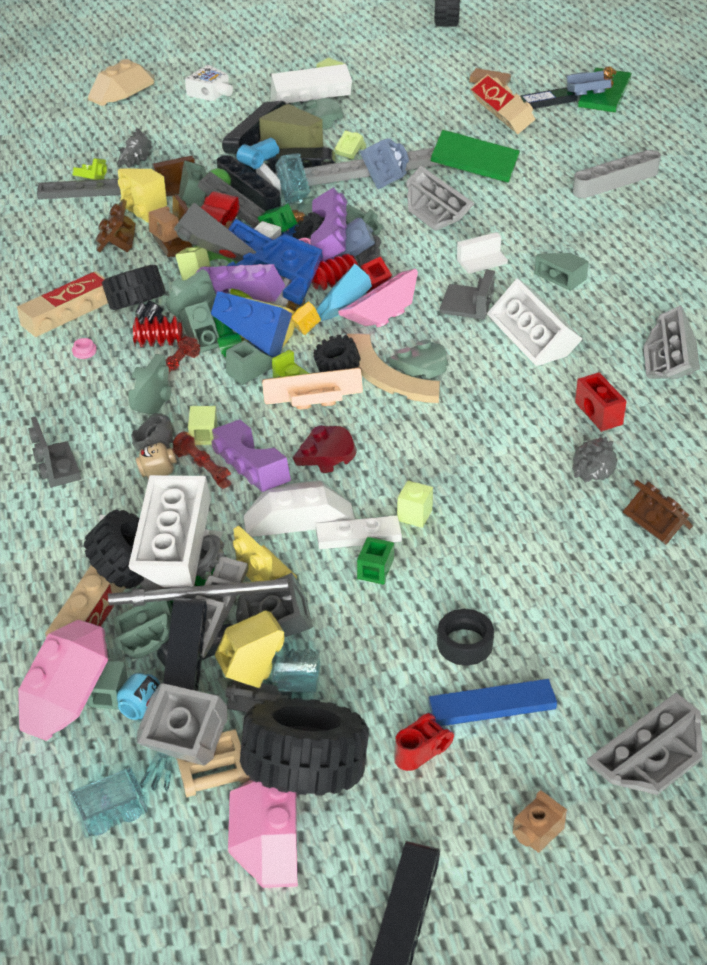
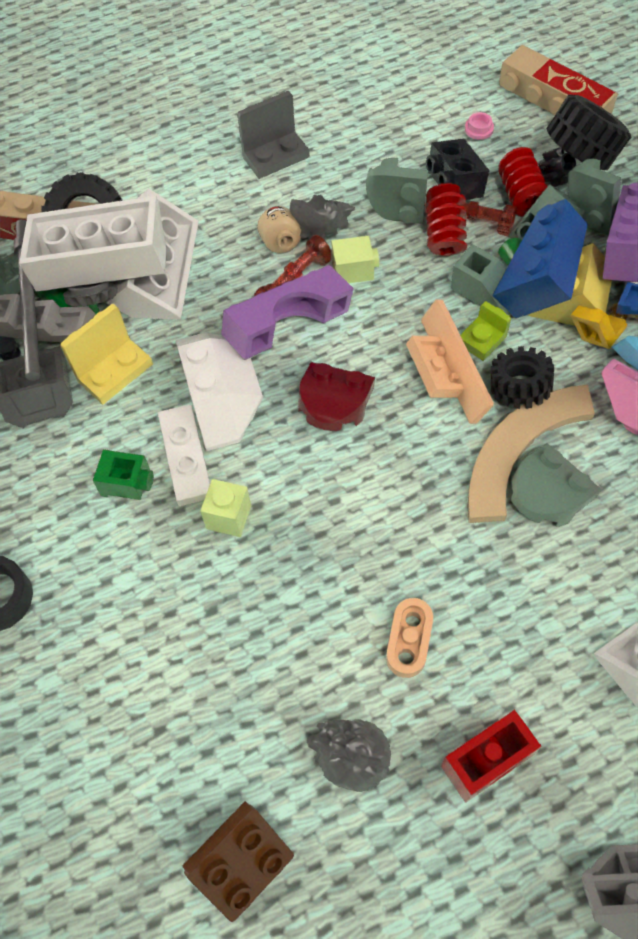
camera: 85 degrees right, 20 degrees up
(128, 356) = (458, 164): none -> black brick
(189, 370) = (446, 220): none -> red piece
(520, 431) = (409, 638): none -> light nougat plate

